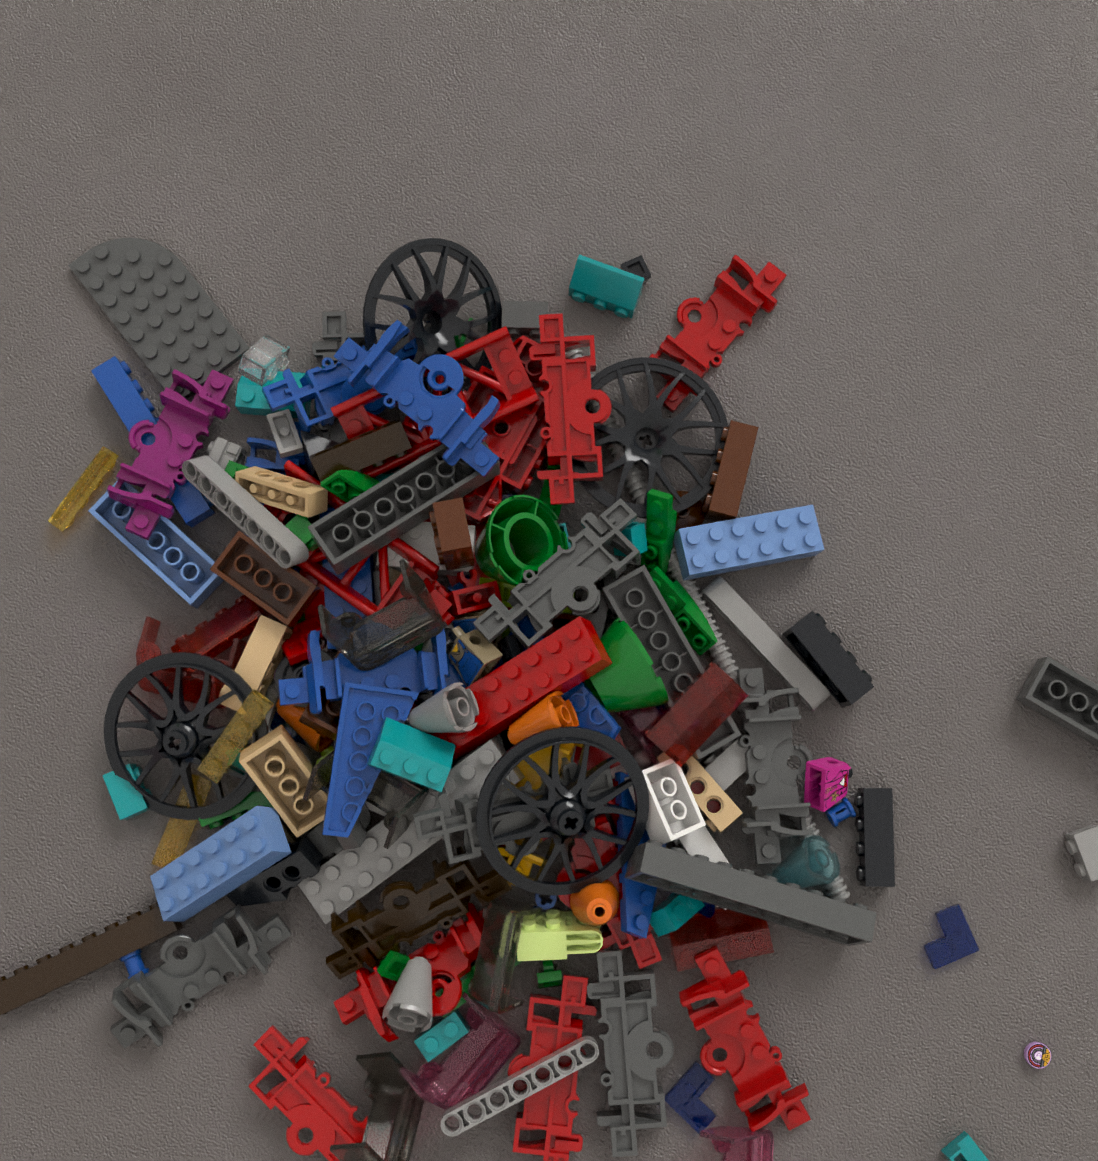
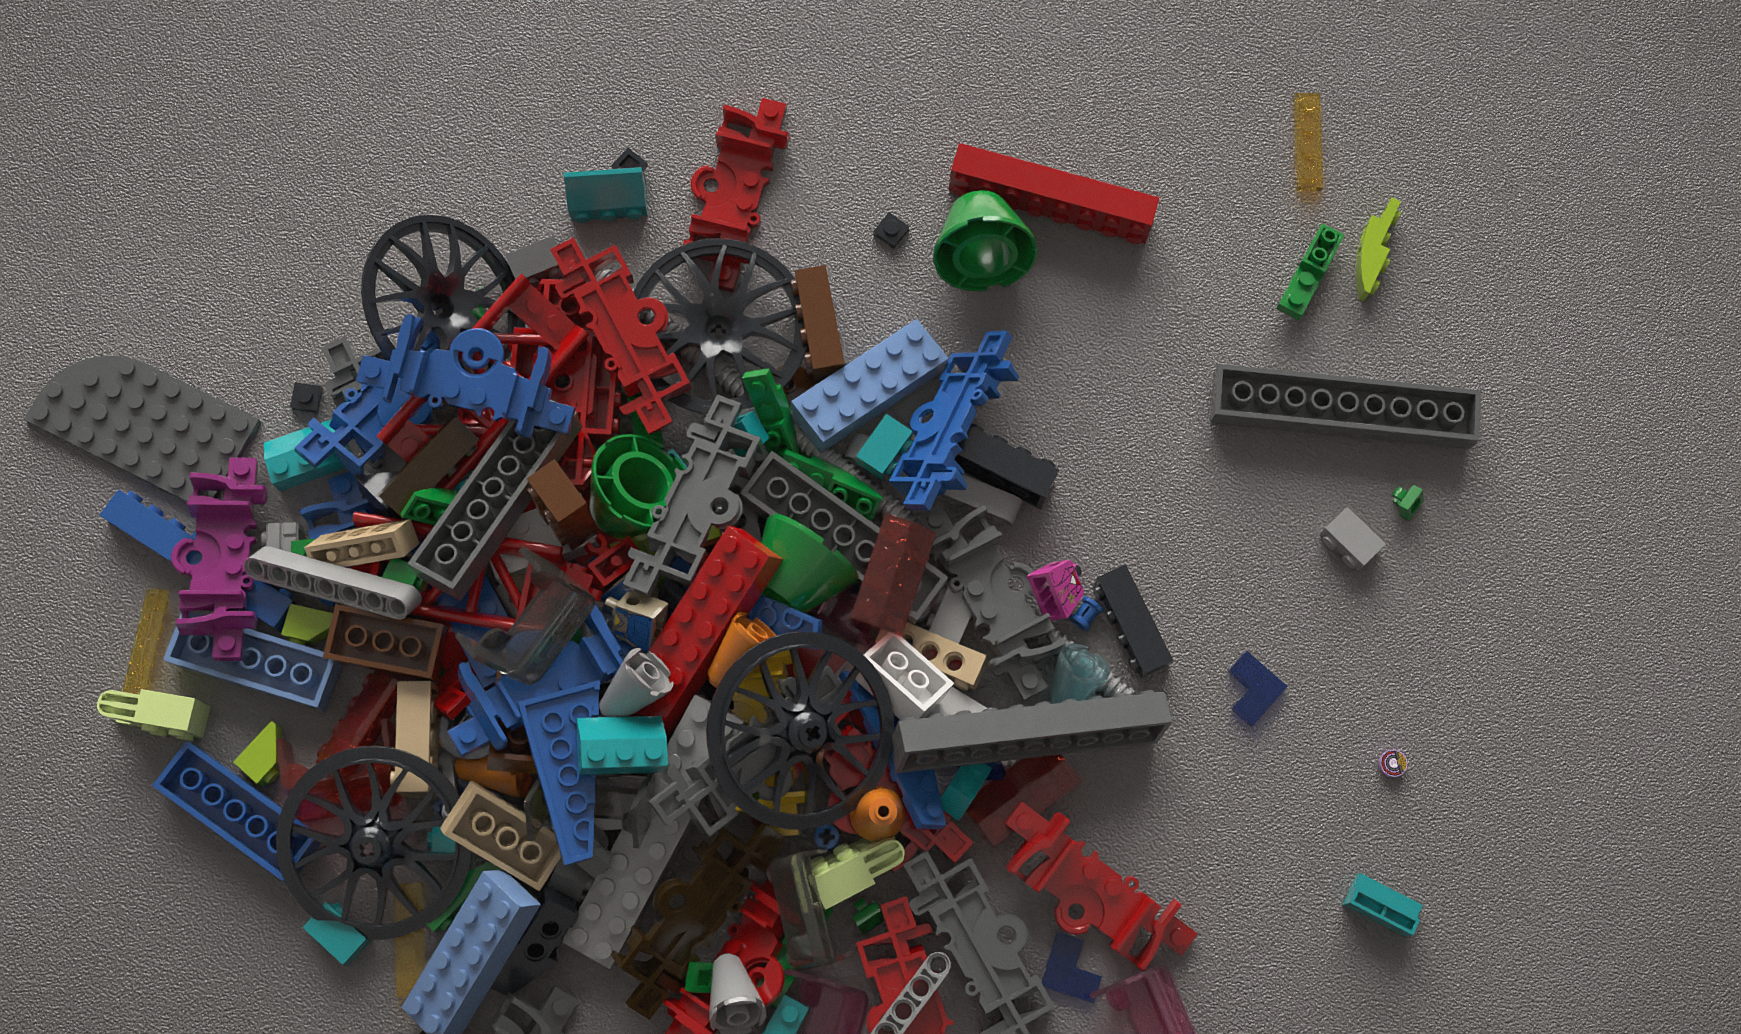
camera: 25 degrees left, 5 degrees down
(65, 551) = (156, 712): none -> yellowish green brick
(89, 651) = (229, 806): none -> blue brick
(129, 623) = (261, 756): none -> lime slope
(212, 532) = (306, 625): none -> lime slope
(235, 736) = (427, 815): clear yellow plate -> none
(264, 360) = (281, 423): clear brick -> none
(284, 433) = (338, 487): light grey plate -> none
(297, 345) = (306, 397): none -> black plate
(738, 600) = (885, 447): none -> teal brick
(809, 597) = (932, 454): none -> blue piece
(824, 419) = (891, 230): none -> black plate
(897, 466) = (983, 244): none -> green cone
(975, 450) = (1055, 193): none -> red brick

